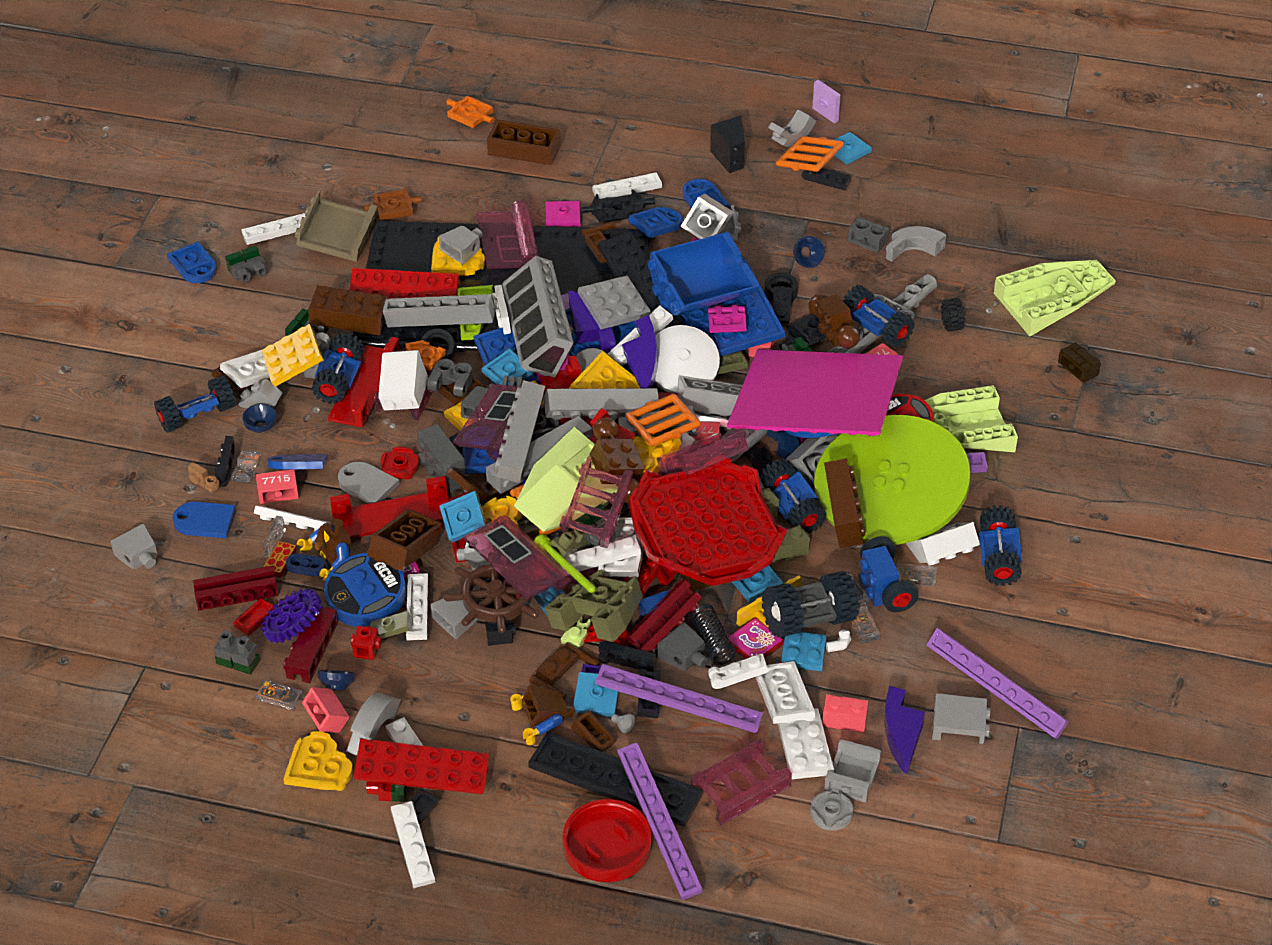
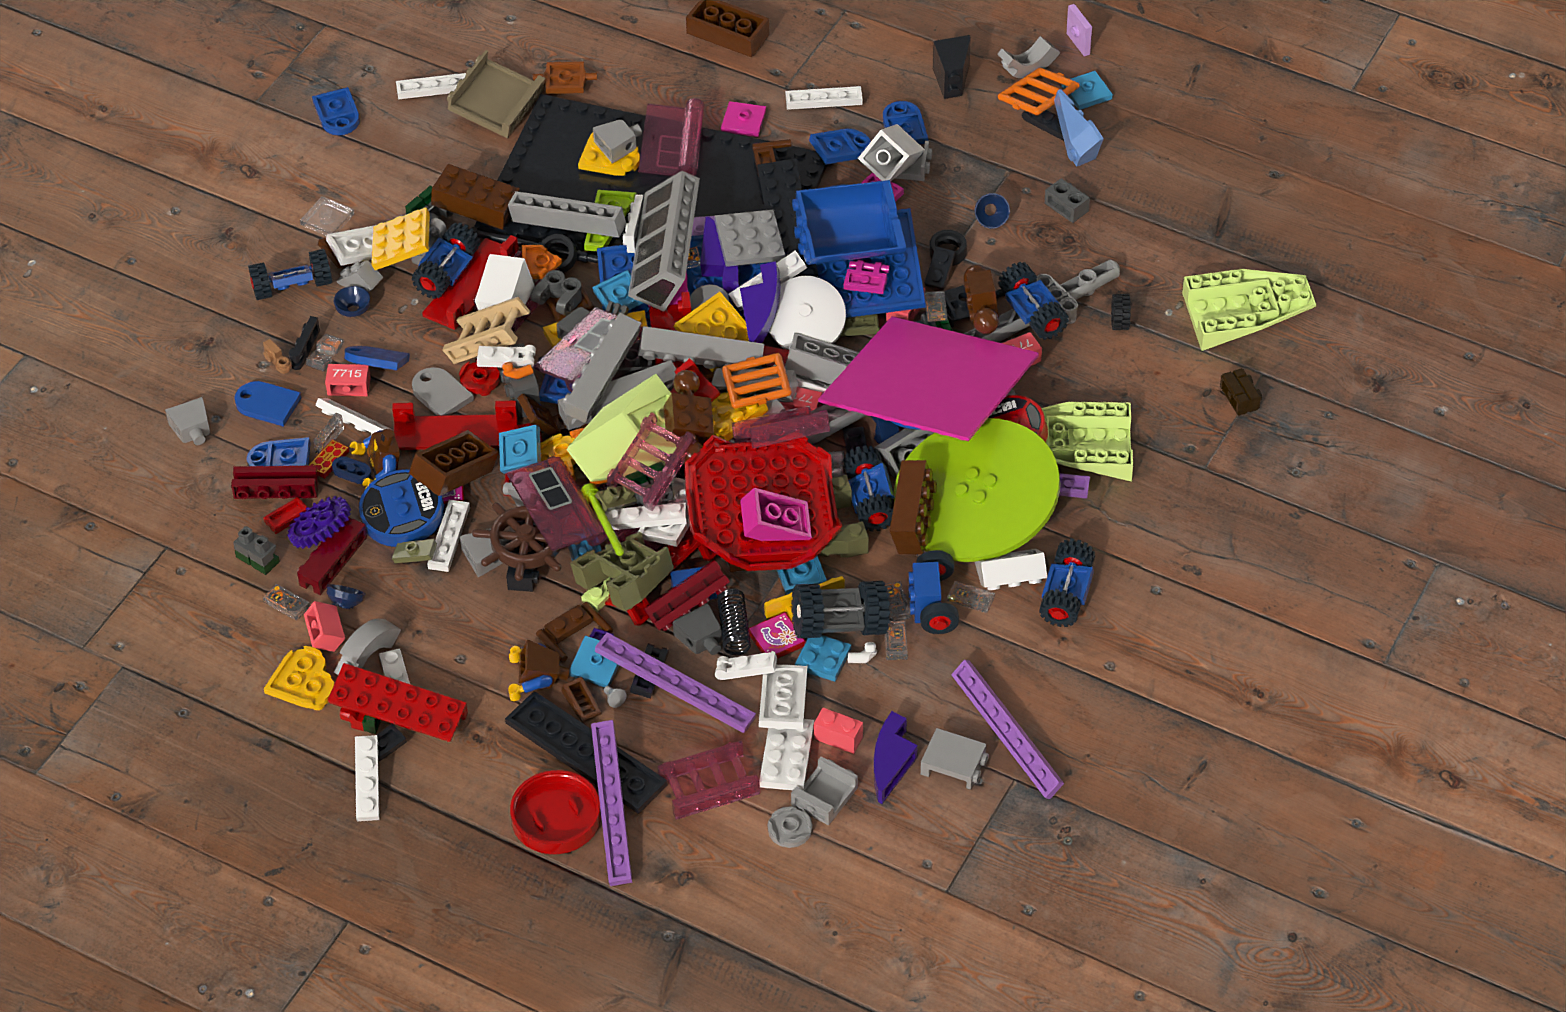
camera: 15 degrees right, 5 degrees up
(211, 351) = (327, 216): none -> clear plate
(232, 561) = (281, 453): none -> blue tile
(246, 264) = (395, 125): dark grey hips -> none
(365, 642) = (384, 564): red brick -> none
(402, 428) = (476, 322): none -> tan fence
(404, 283) = (543, 177): red bracket -> none
(426, 437) = (496, 356): none -> white plate
(433, 449) = (515, 373): none -> orange arm
(606, 208) = (790, 120): black plate -> none
(626, 656) = (639, 628): black plate -> none
(725, 531) = (774, 517): none -> dark pink slope
(794, 336) = (935, 306): none -> clear tile
(859, 180) = (1080, 136): none -> medium blue wedge
(917, 238) = (1115, 213): light grey arch -> none

